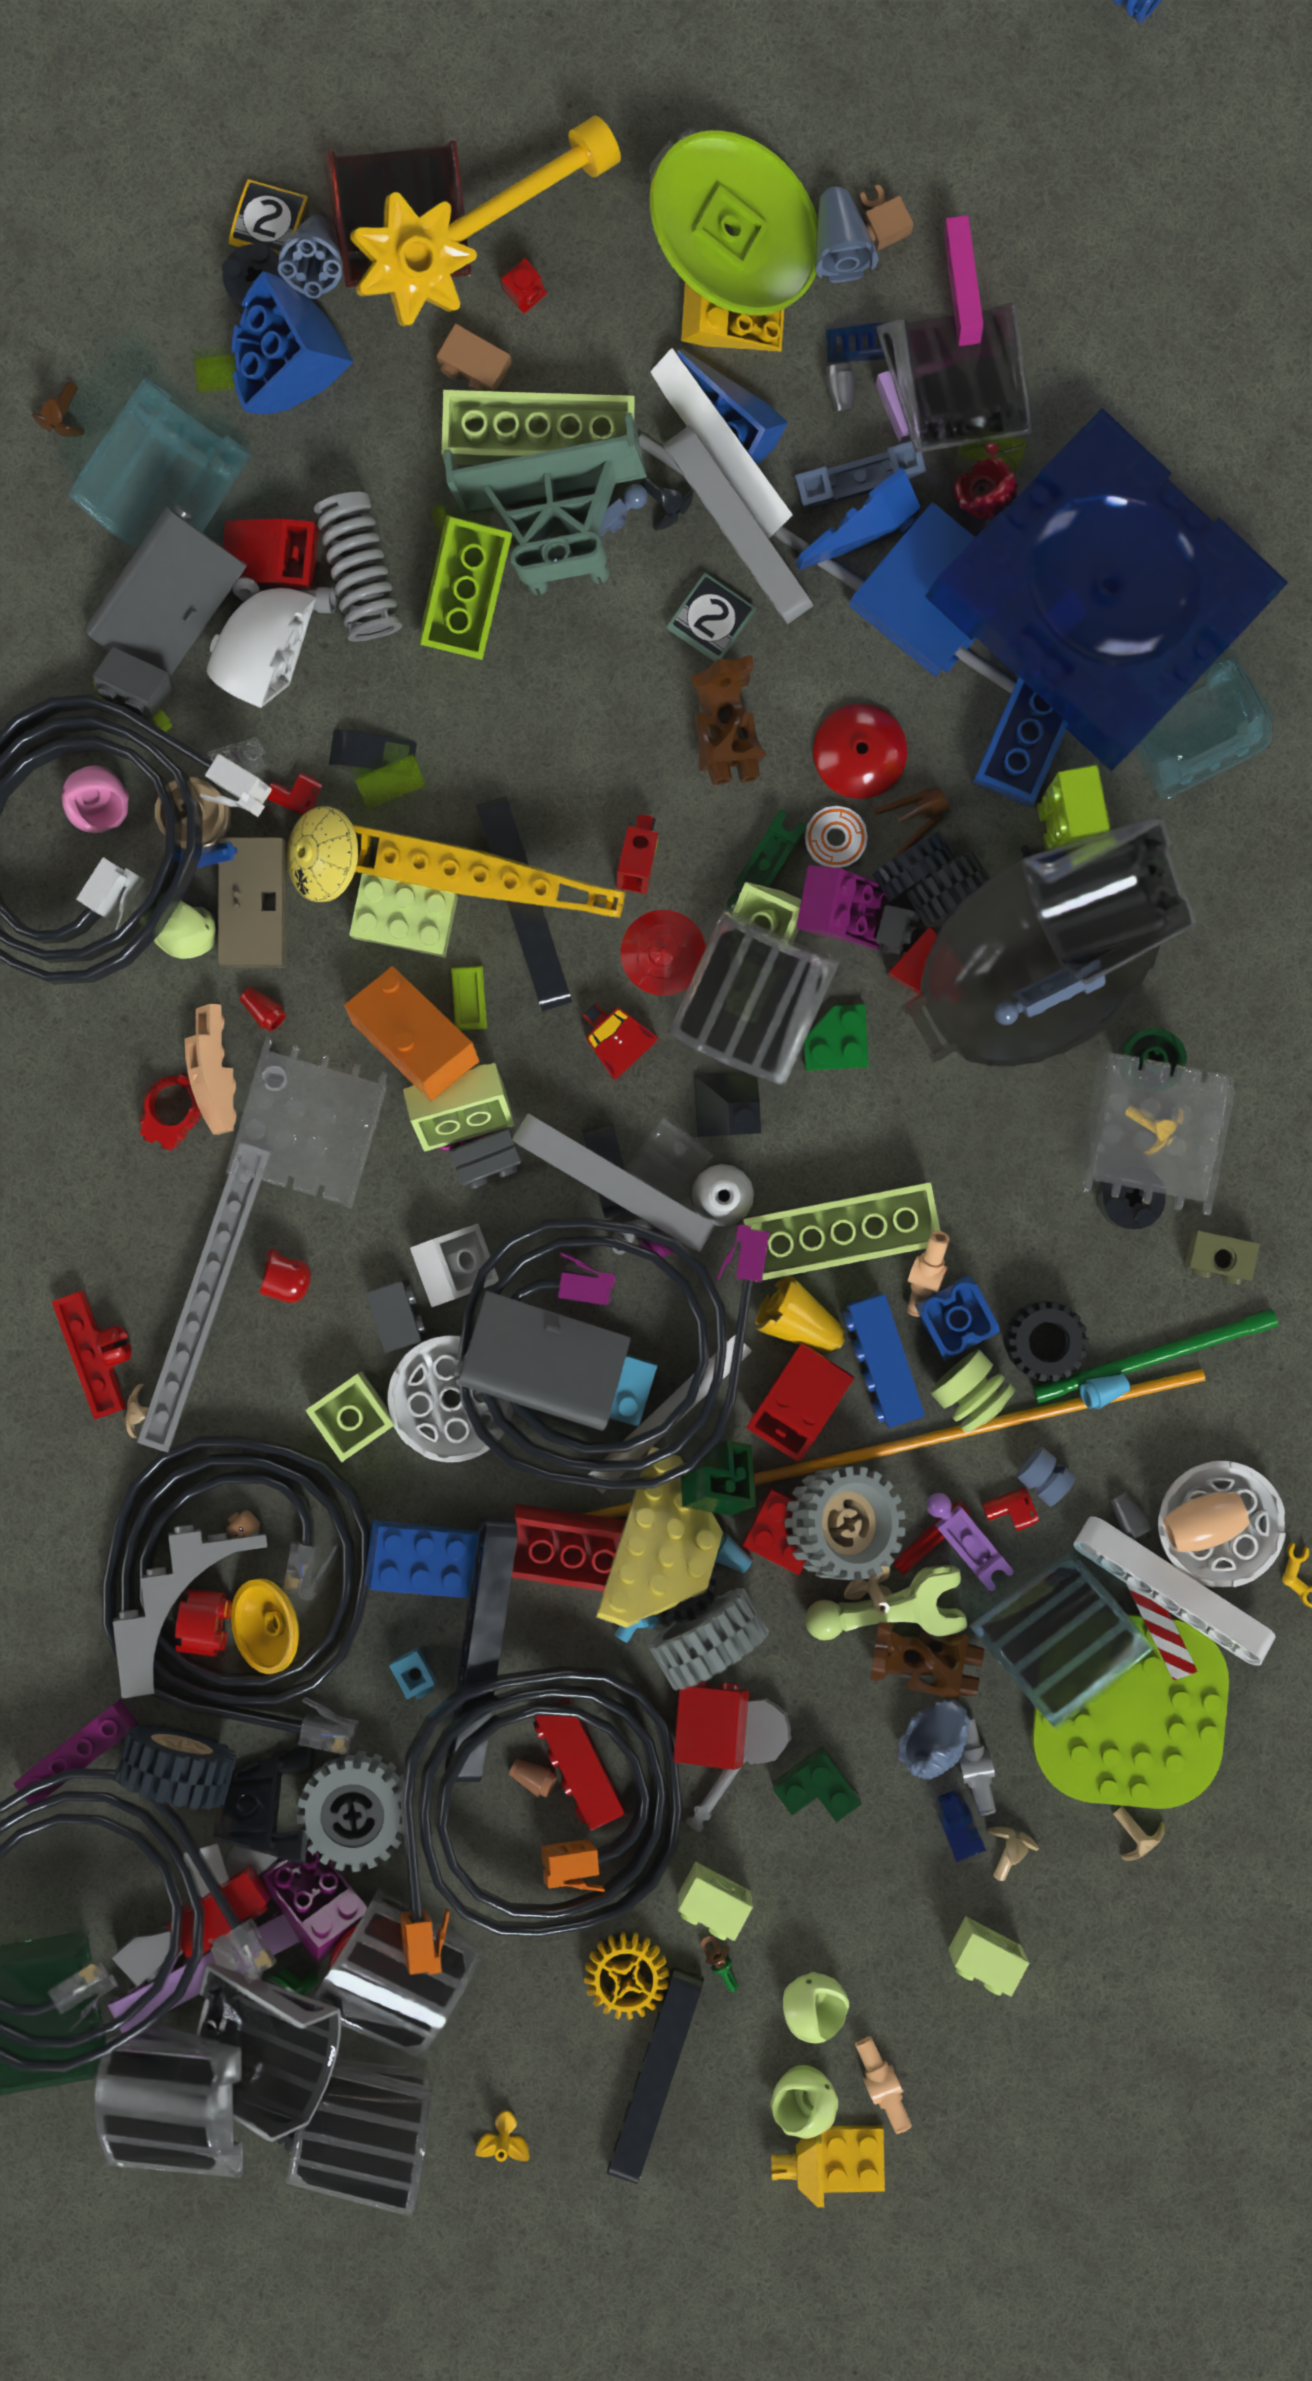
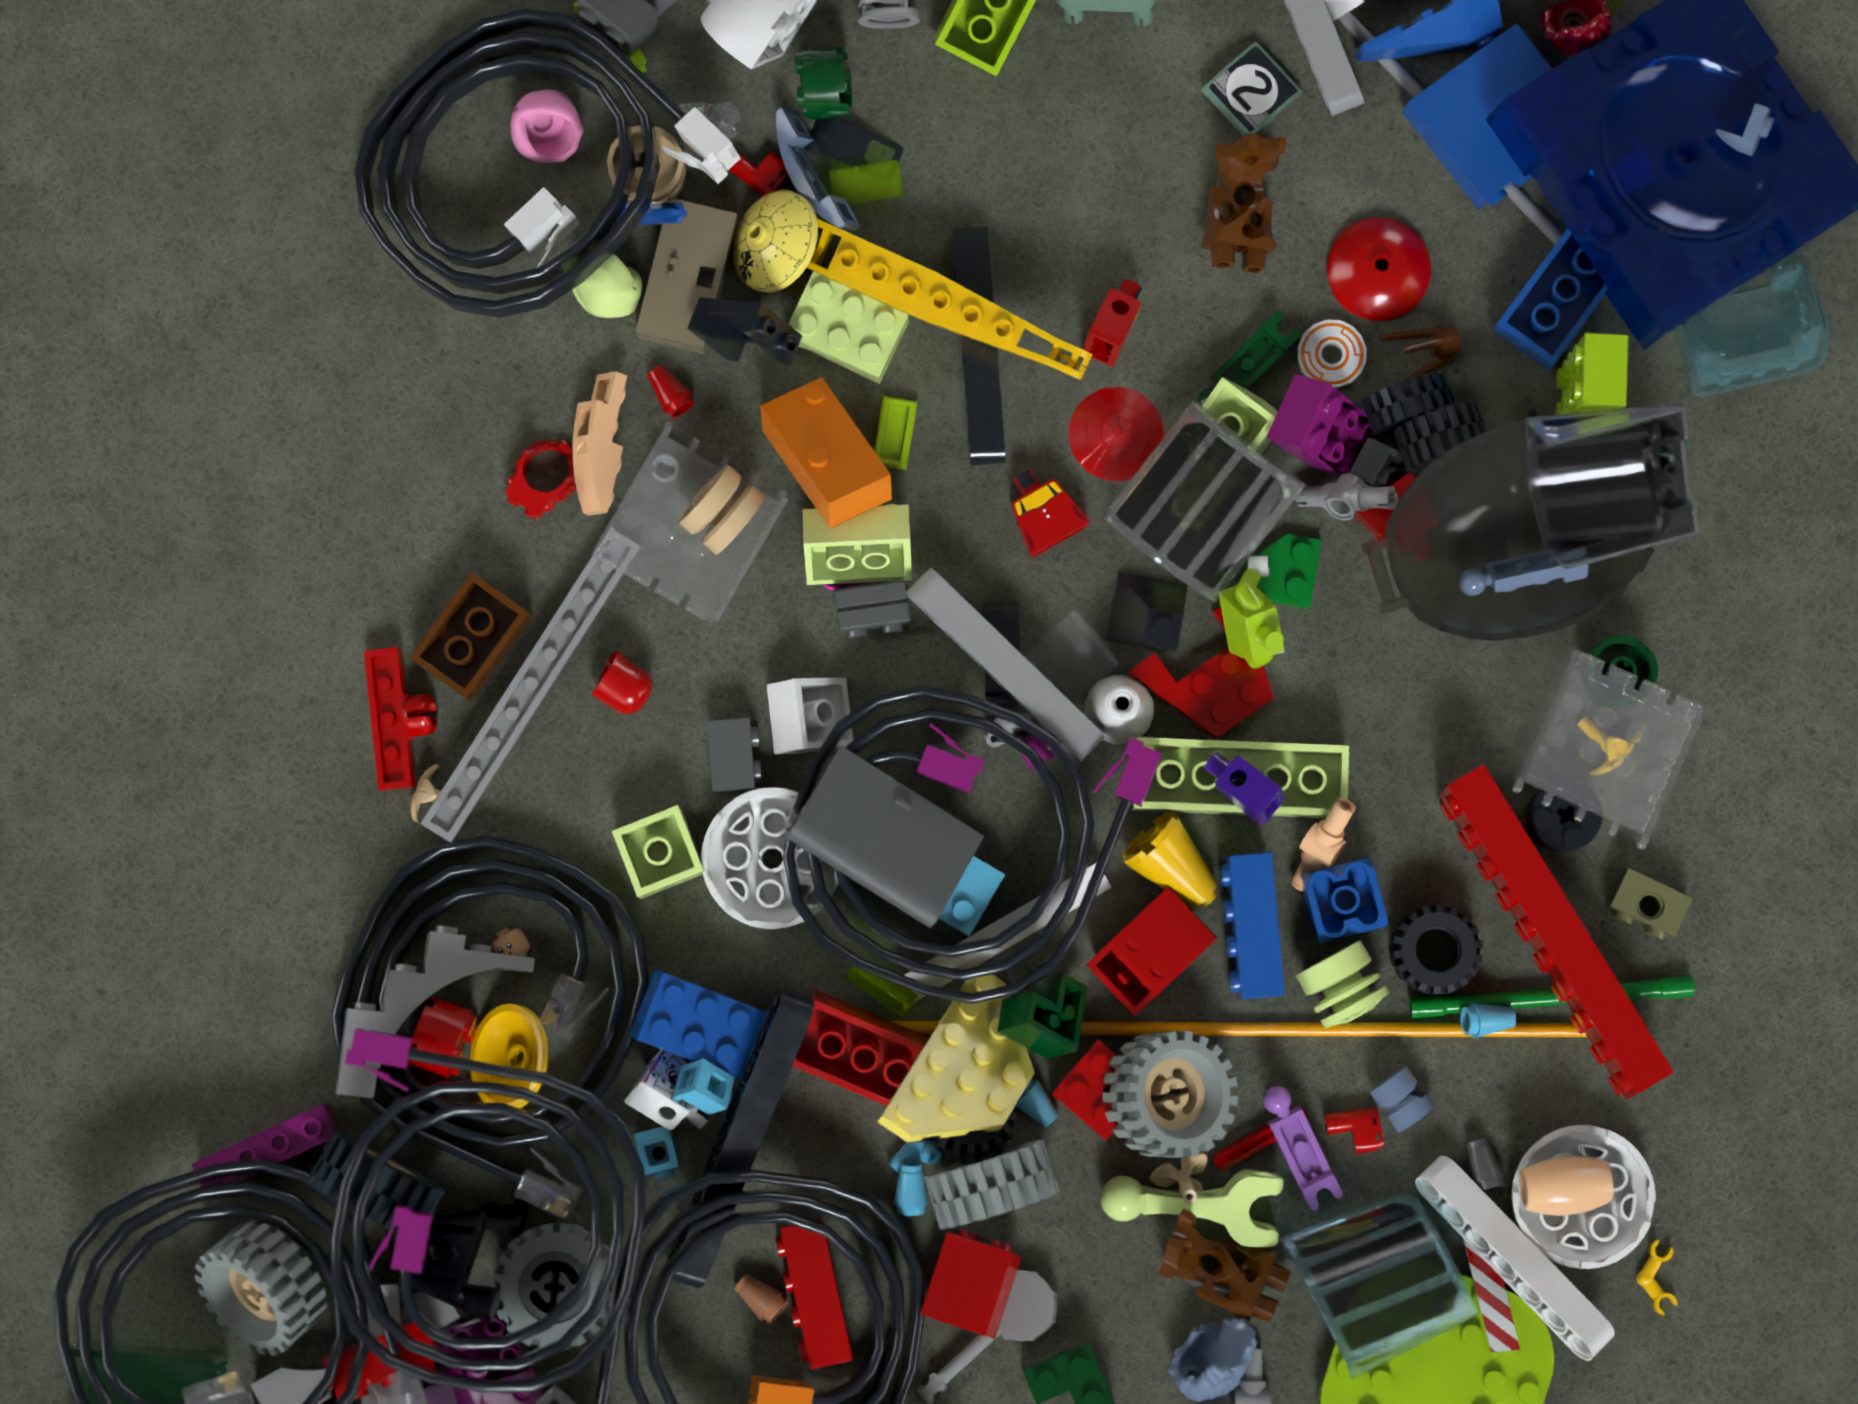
camera: 20 degrees right, 5 degrees down
(98, 1878) = (260, 1288): none -> light grey wheel
(141, 1268) = (471, 637): none -> reddish brown brick
(159, 1658) = (416, 1224): none -> black piece
(302, 939) = (733, 323): none -> black panel
(315, 758) = (792, 138): none -> sand blue slope
(327, 1104) = (726, 513): none -> tan wheel
(331, 701) = (825, 83): none -> dark green brick
(411, 1623) = (654, 1093): none -> white torso
(439, 1613) = (704, 1086): none -> medium azure brick
(584, 1493) = (890, 994): none -> clear neon green tile
(639, 1657) = (910, 1190): none -> medium azure cone
(810, 1152) = (1213, 694): none -> red wing
(819, 1091) = (1251, 617): none -> lime torso
(861, 1248) = (1256, 797): none -> dark purple torso
(879, 962) = (1347, 497): none -> light grey pin
(1148, 1305) = (1554, 933): none -> red brick
(1169, 546) = (1757, 127): none -> sand blue plate

